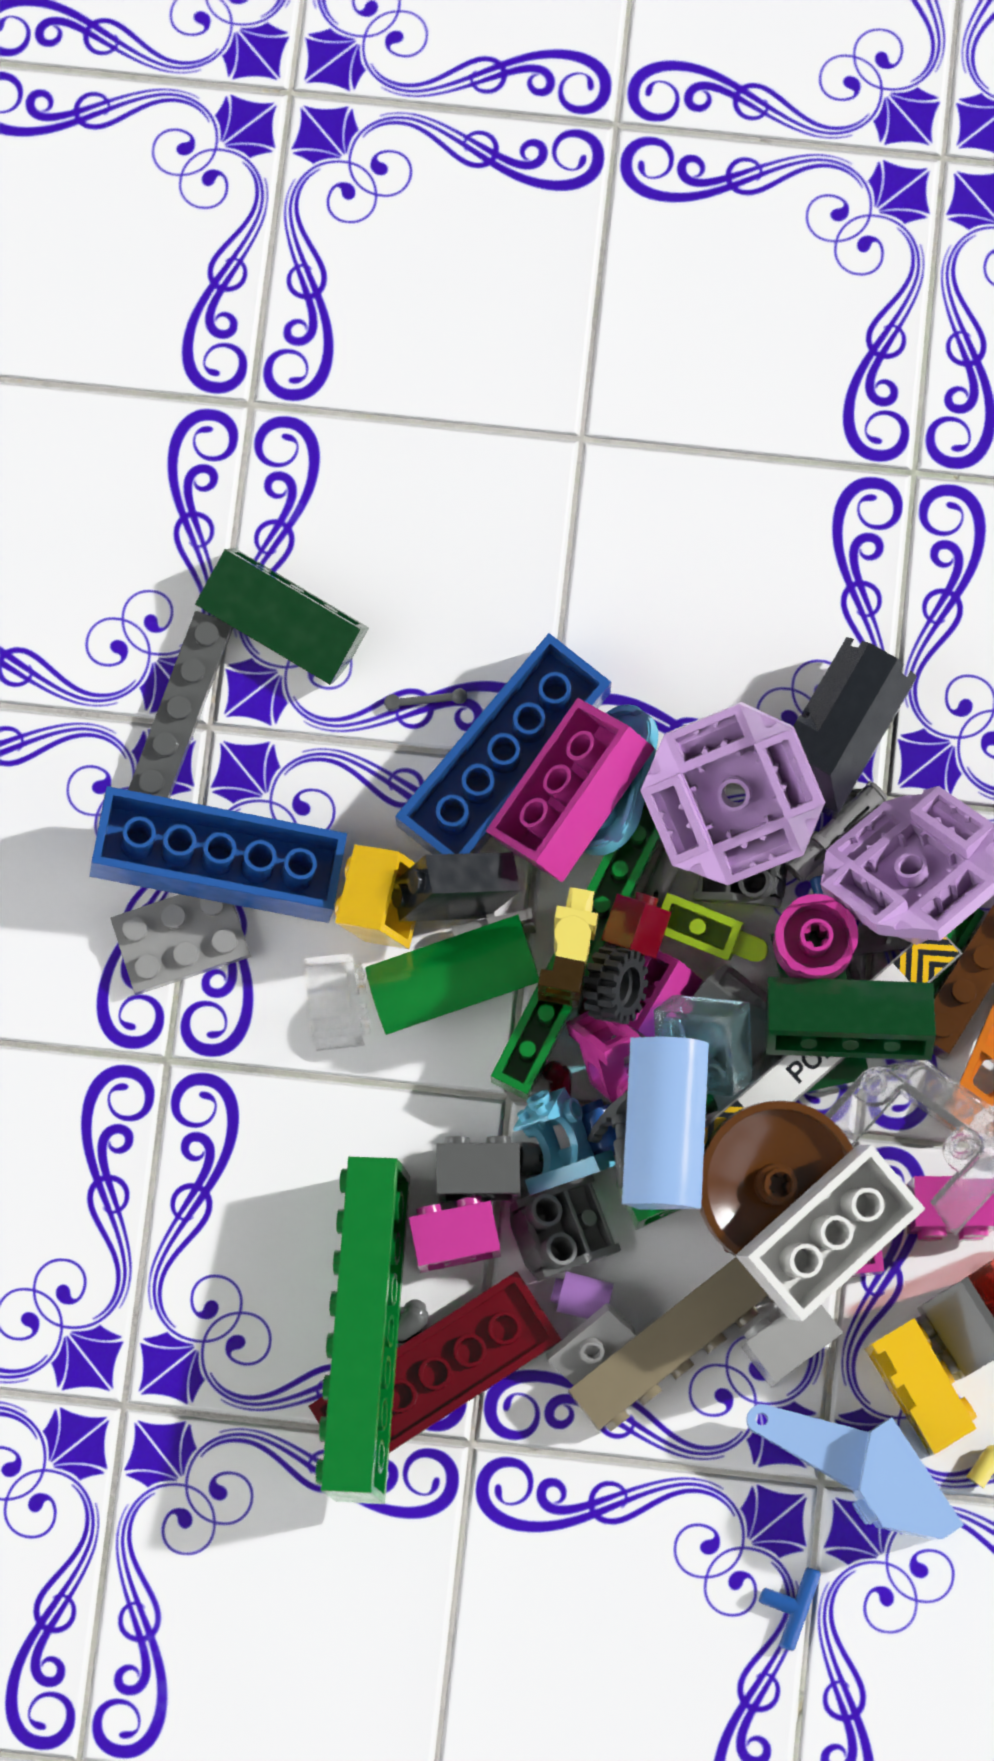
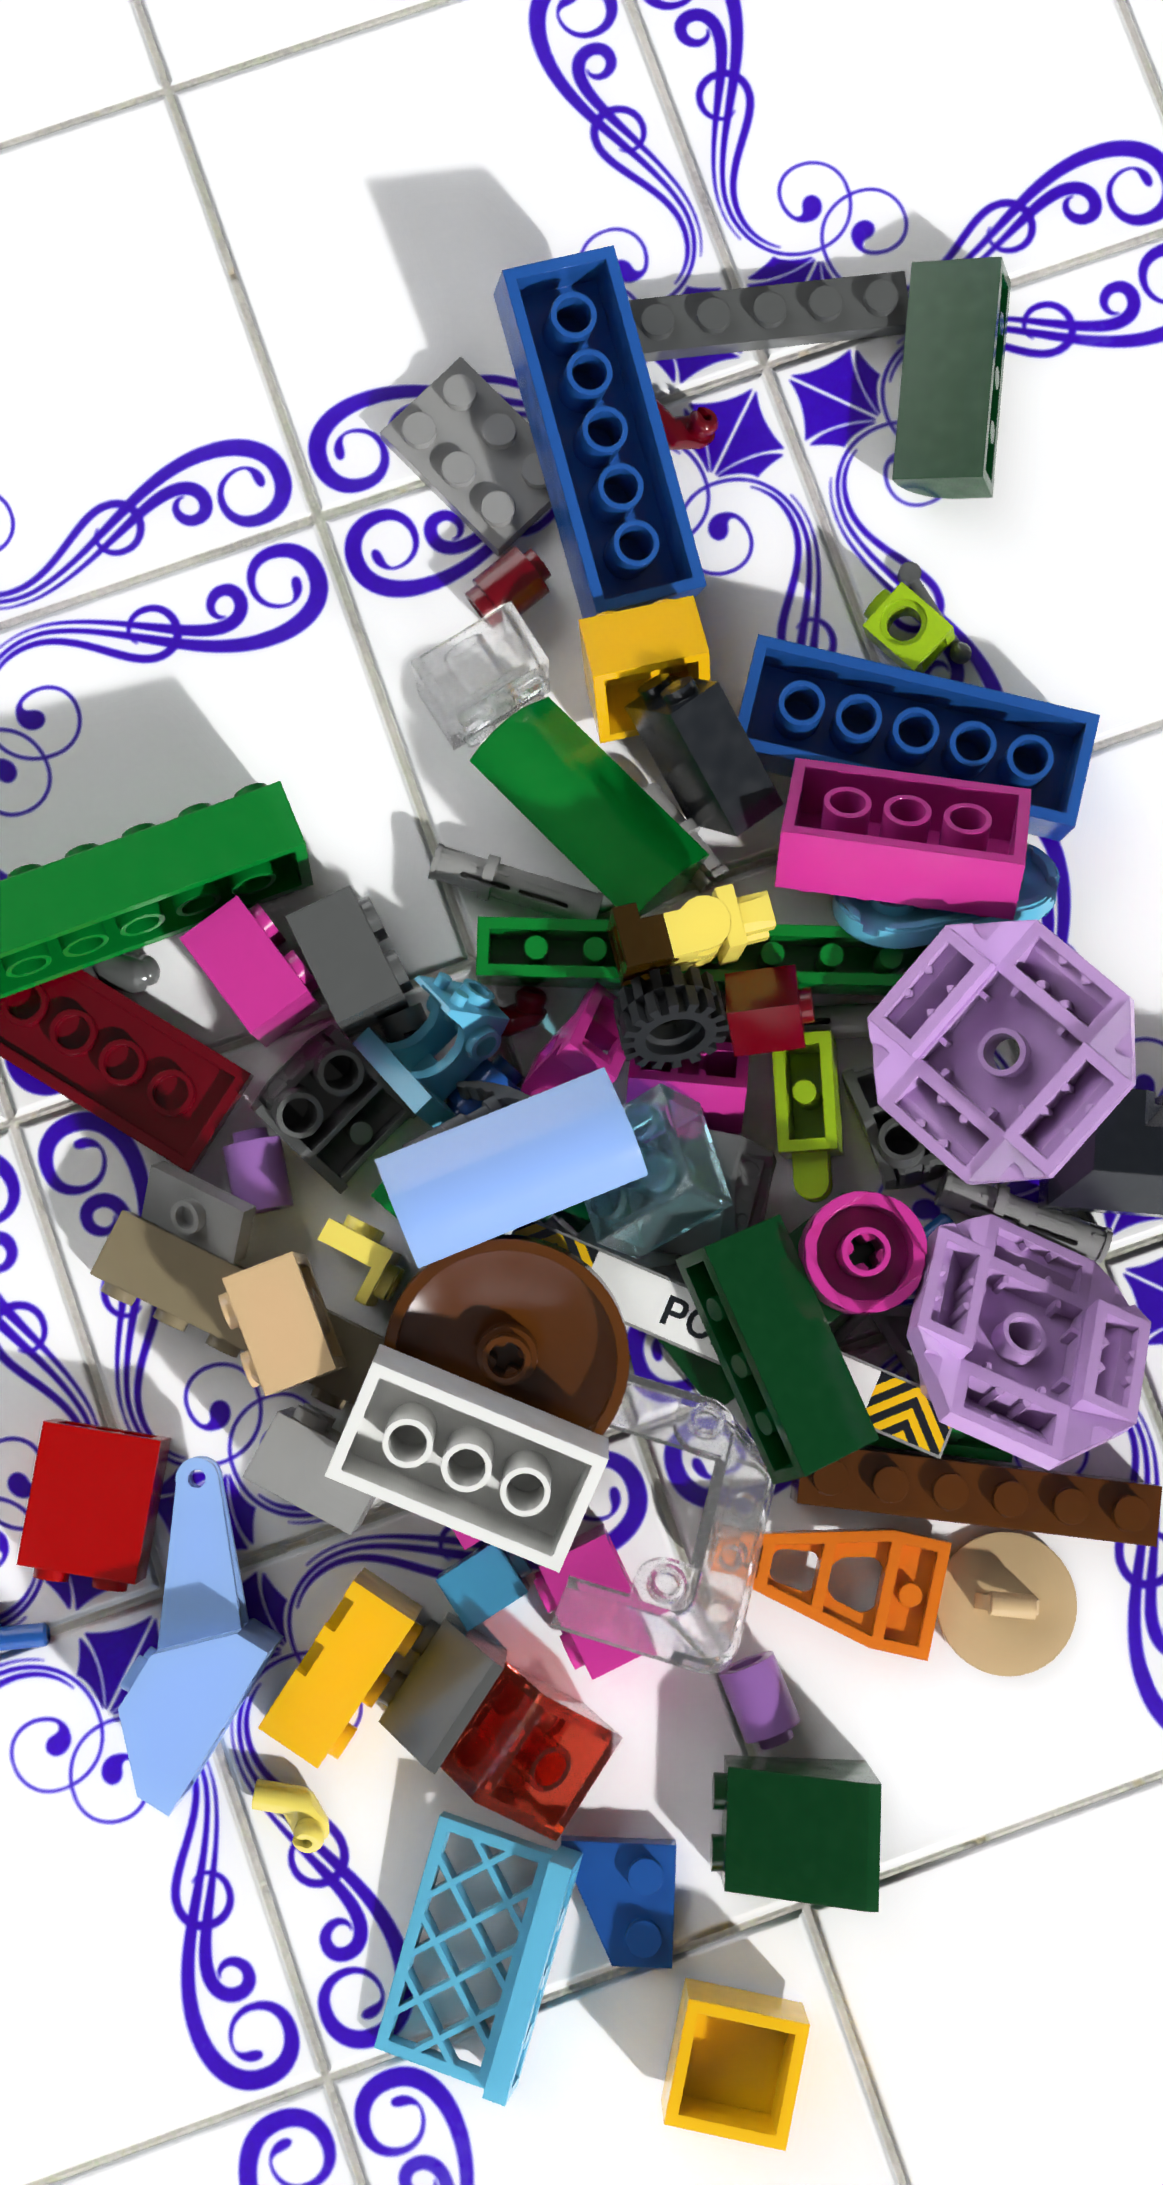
camera: 60 degrees right, 5 degrees up
(231, 794) = (689, 431): none -> dark red arm
(279, 958) = (511, 578): none -> dark red brick
(449, 722) = (924, 648): none -> lime brick
(473, 1048) = (513, 885): none -> light grey pin
(661, 1247) = (363, 1244): none -> light yellow bracket
(693, 1313) = (281, 1323): none -> tan brick
(745, 1498) = (93, 1504): none -> red brick
(908, 1272) = (484, 1583): none -> dark azure brick

